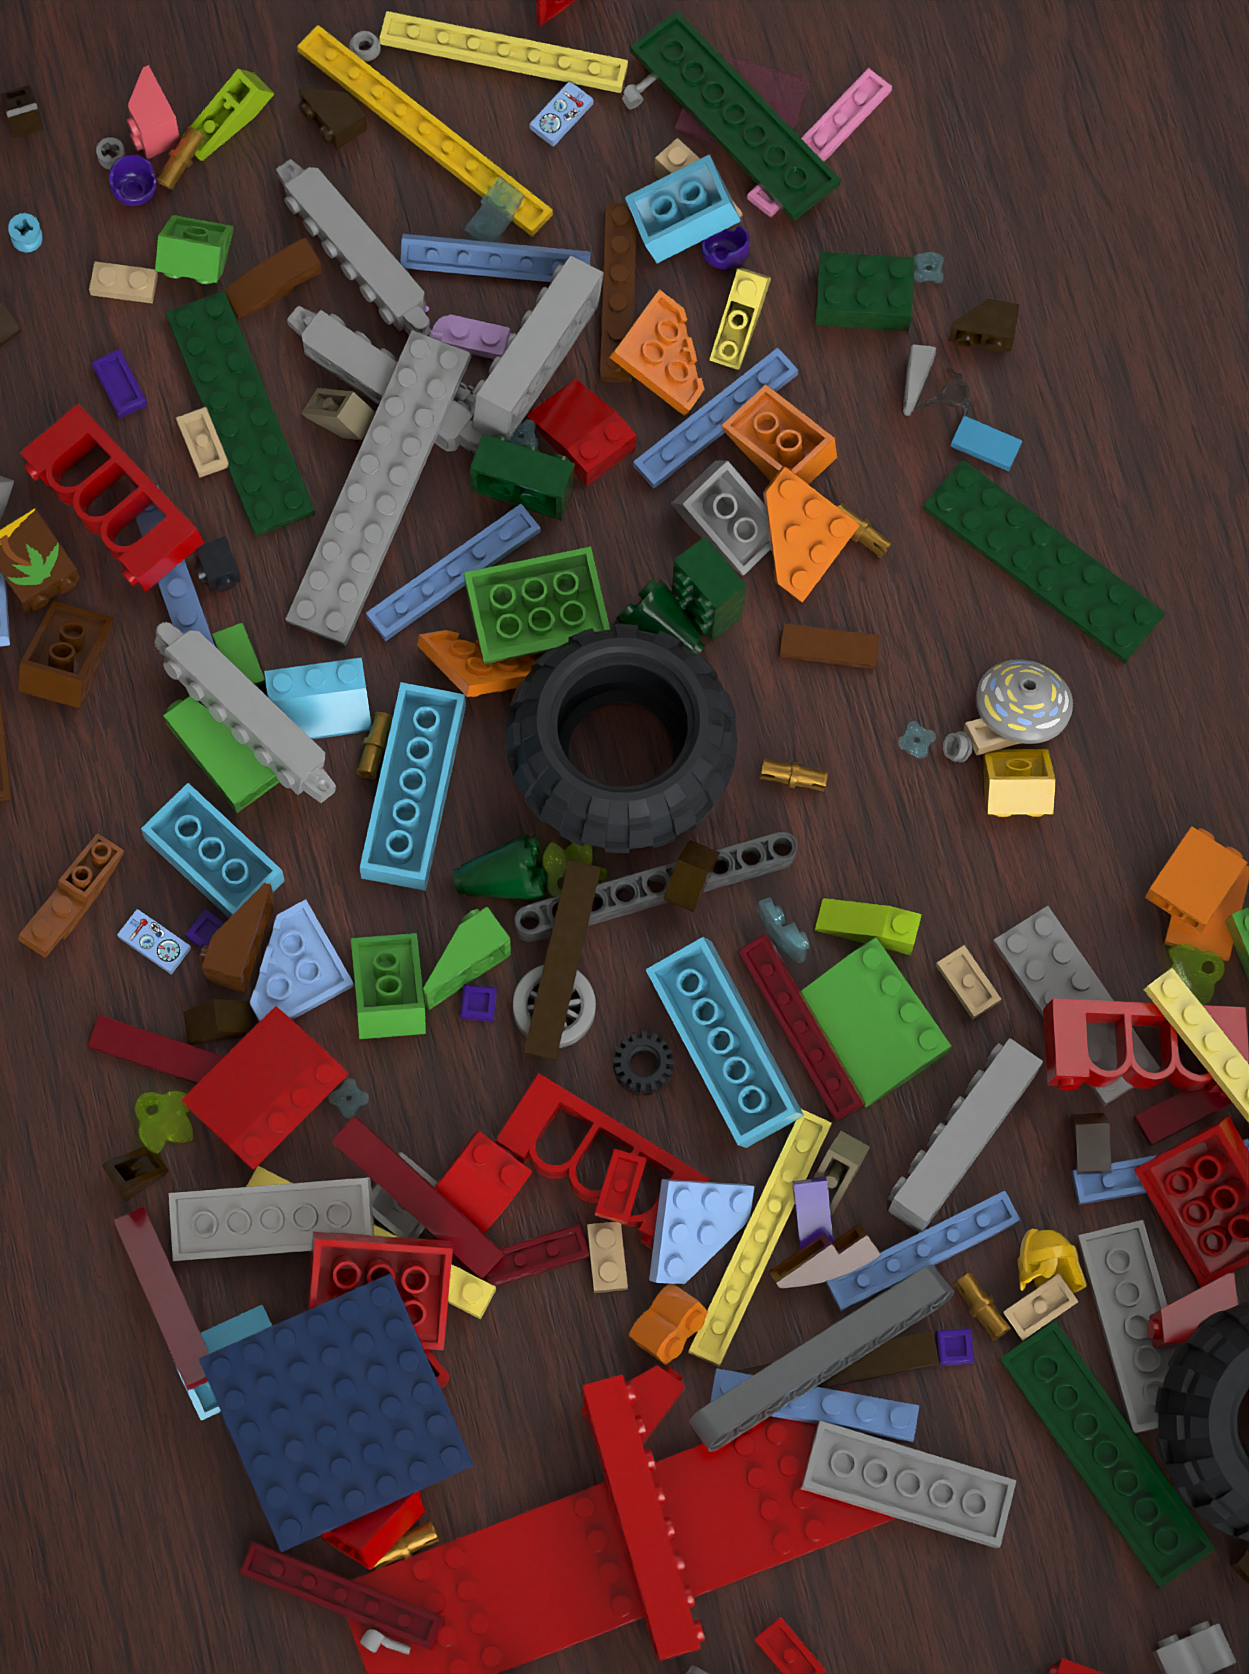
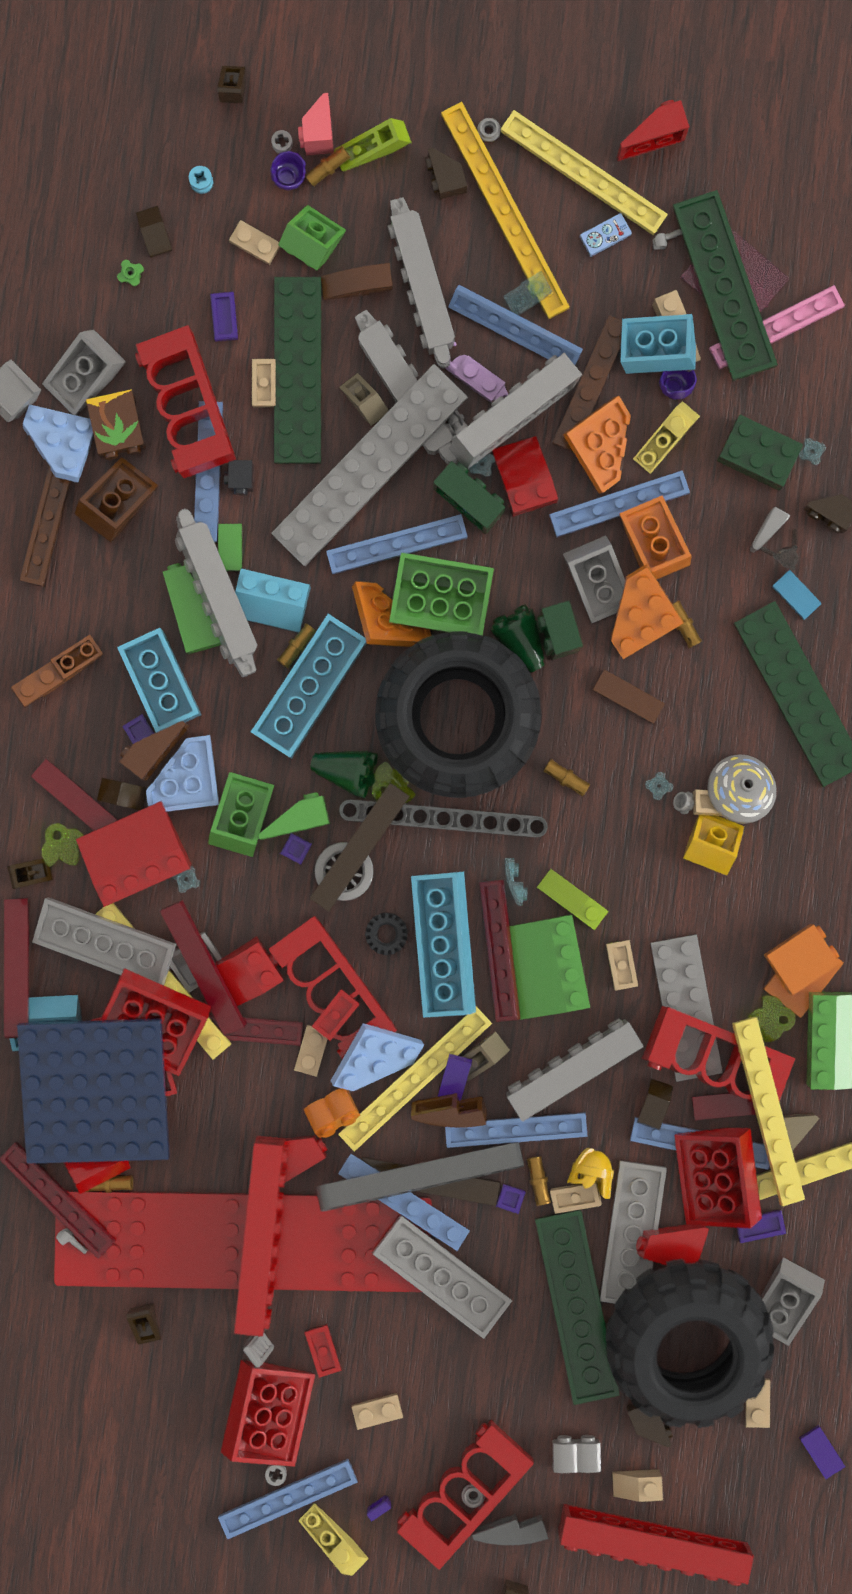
camera: 25 degrees right, 15 degrees up
(154, 941) = (100, 722): light blue tile -> none
(691, 875) = (468, 823): dark brown slope -> none

